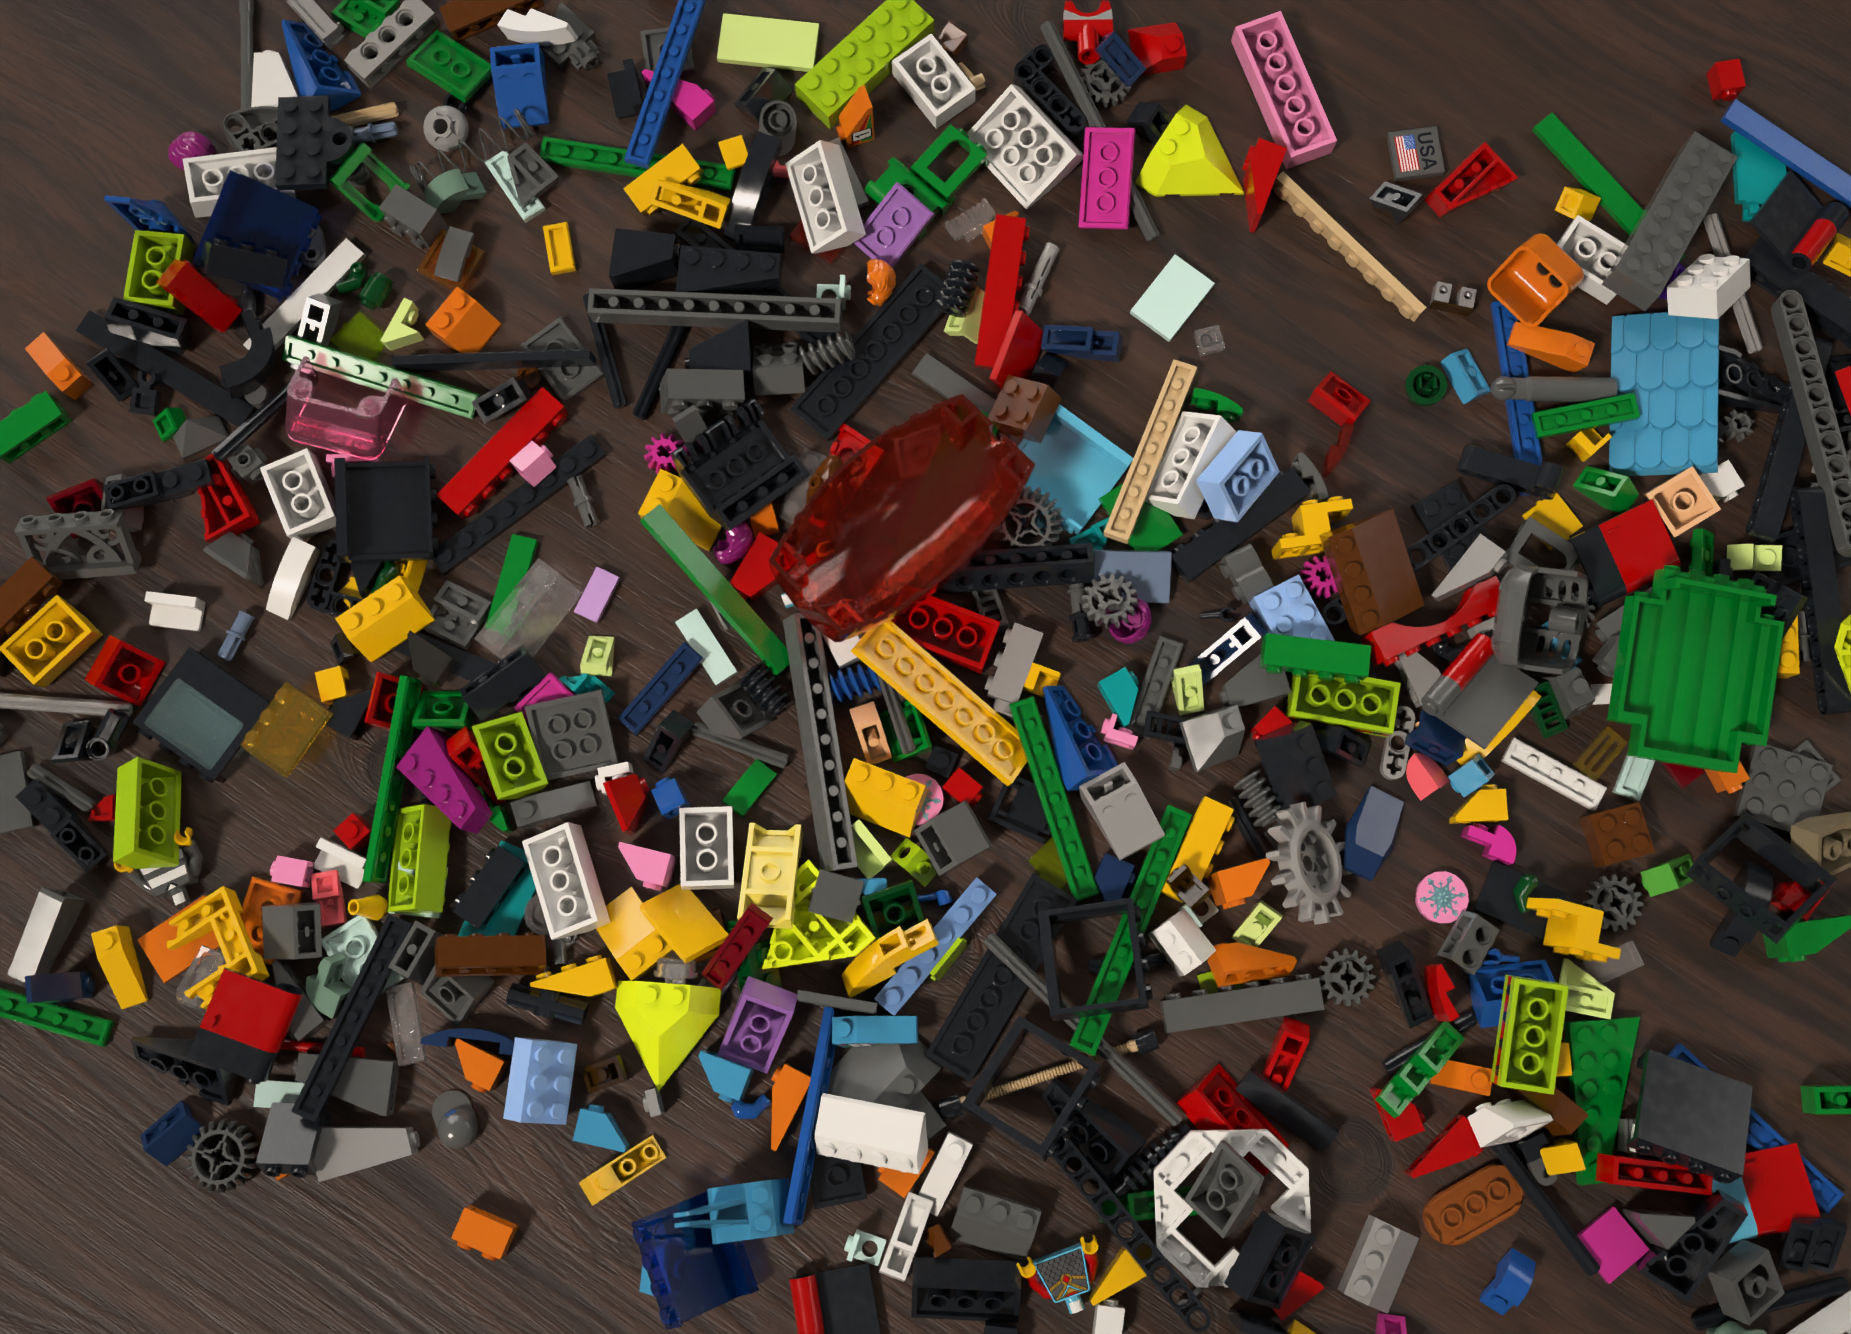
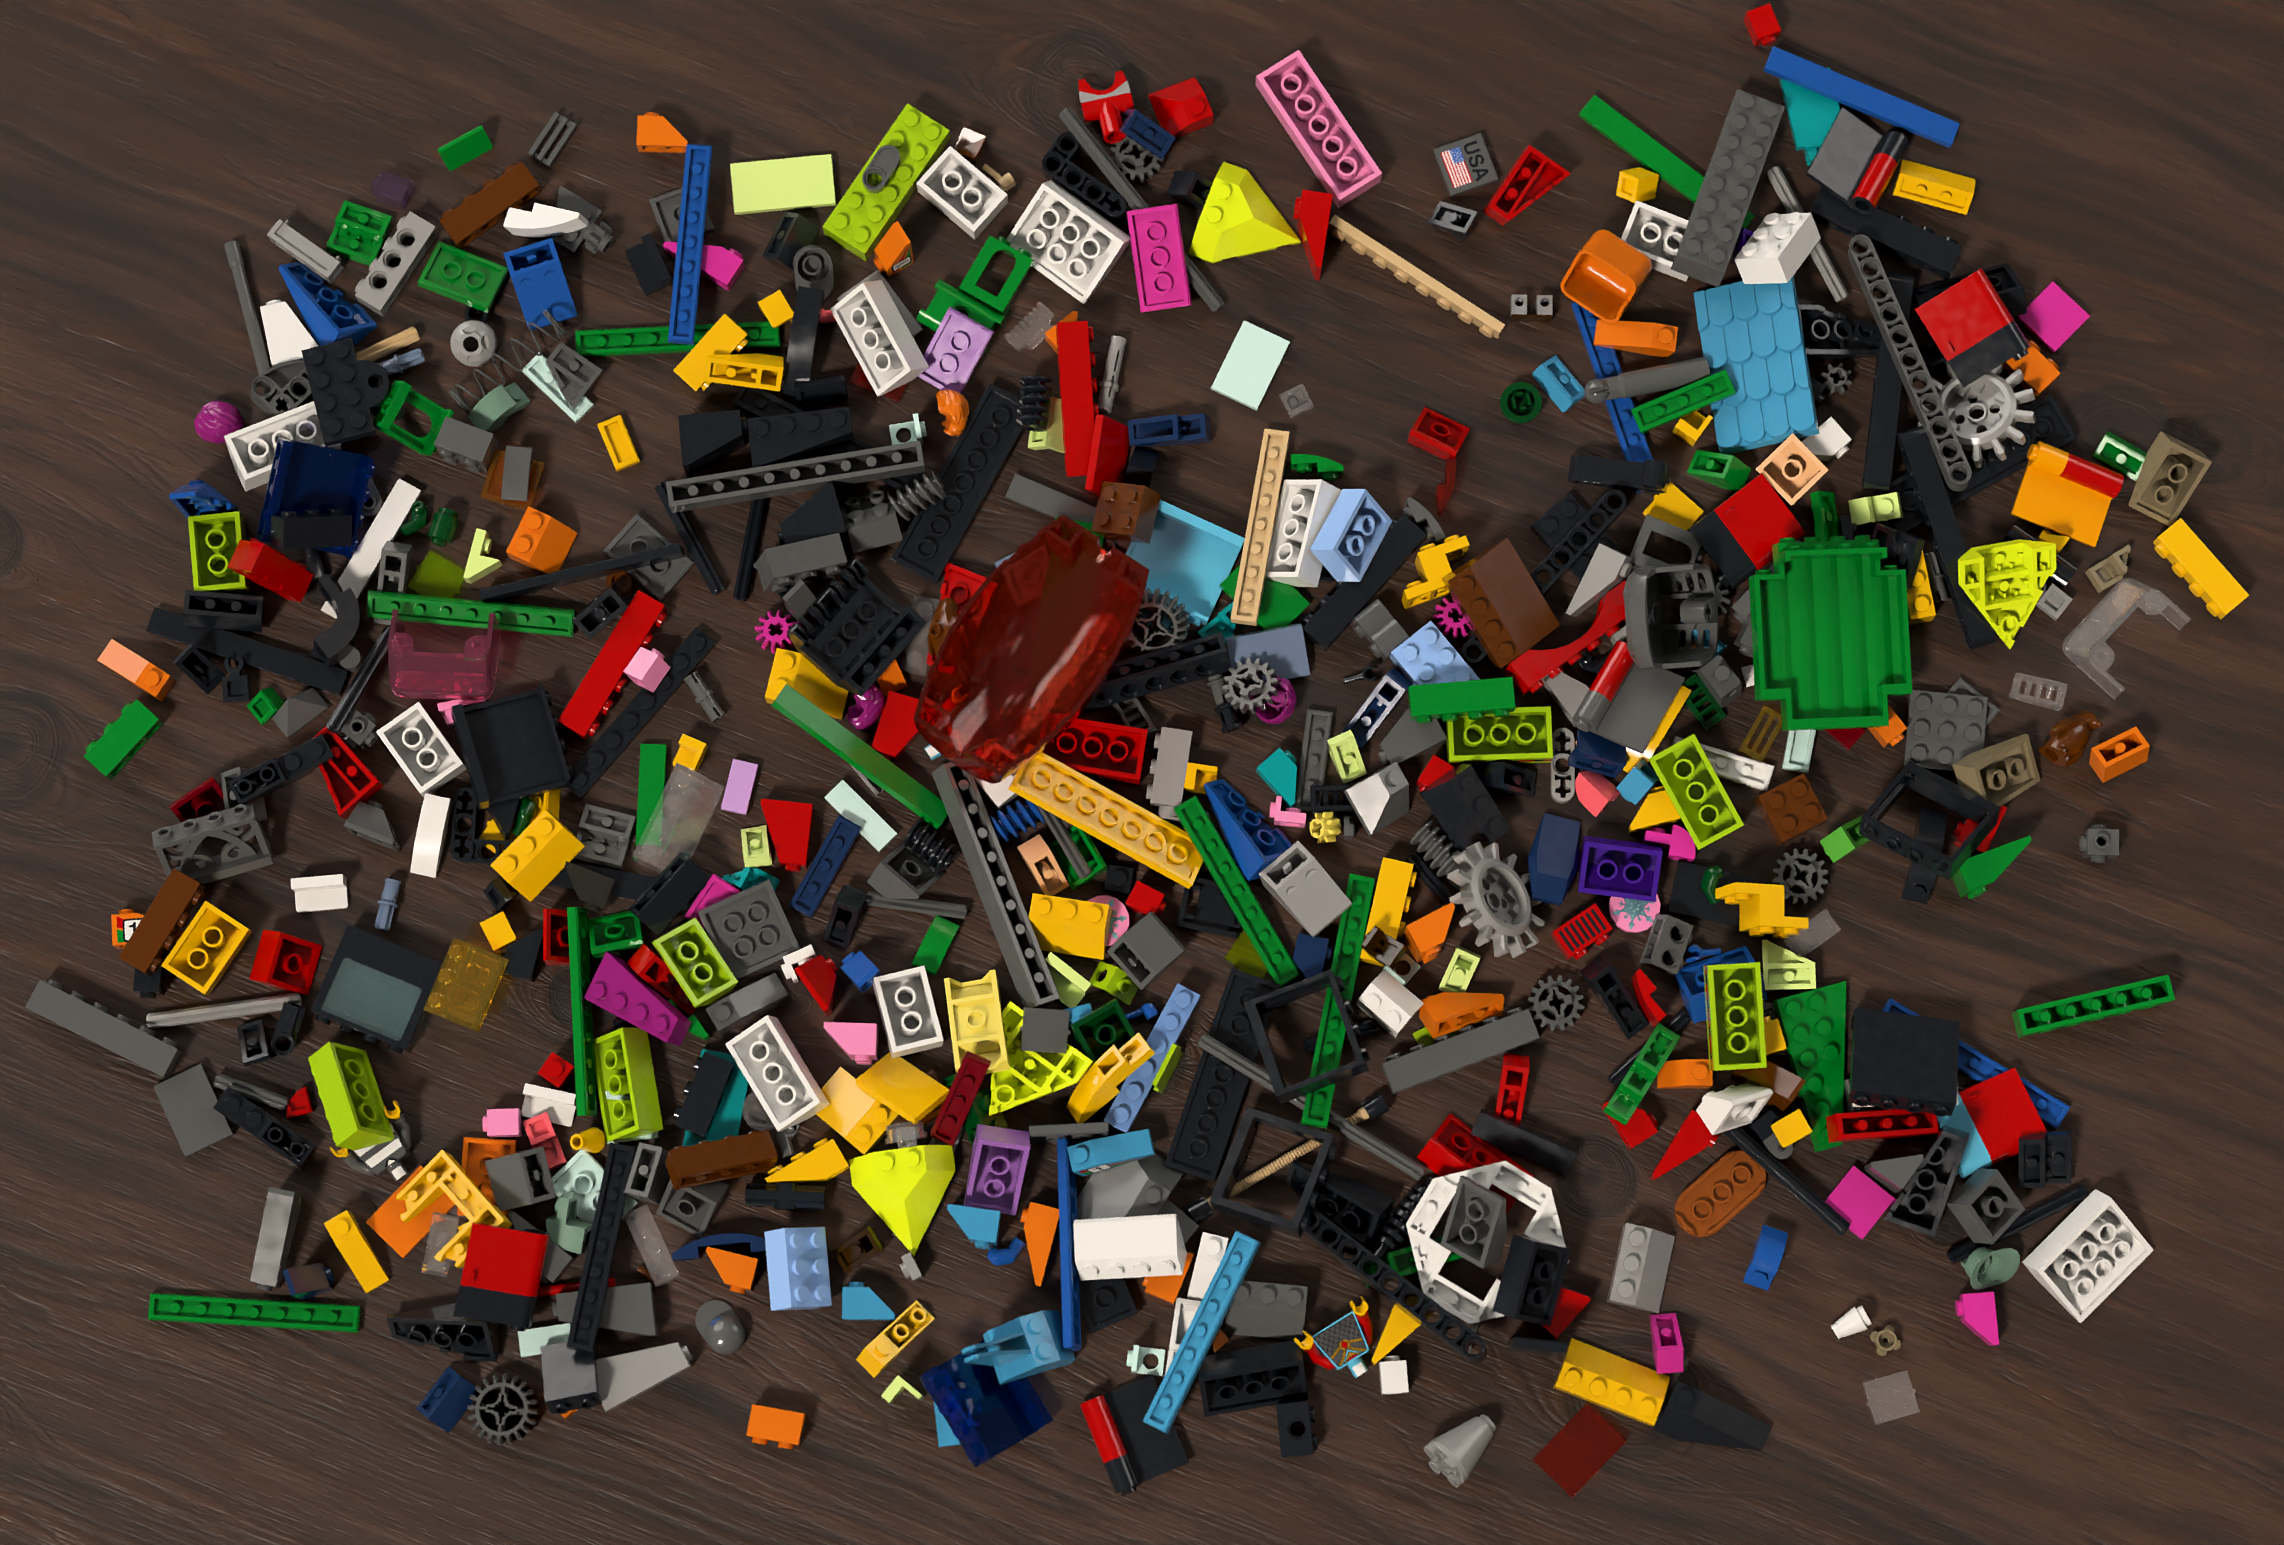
camera: 15 degrees left, 0 degrees up
(557, 553) = (690, 752): none -> yellow panel
(619, 1222) = (896, 1389): none -> yellowish green panel
(634, 647) = (790, 831): none -> red slope
(864, 35) = (884, 164): none -> dark grey piece
(925, 1236) = (1201, 1332): none -> dark azure tile
(1153, 754) = (1325, 827): none -> light yellow gear
(1385, 912) = (1581, 932): none -> red brick
(1436, 857) = (1619, 868): none -> dark purple slope
(1529, 797) = (1696, 791): none -> lime slope

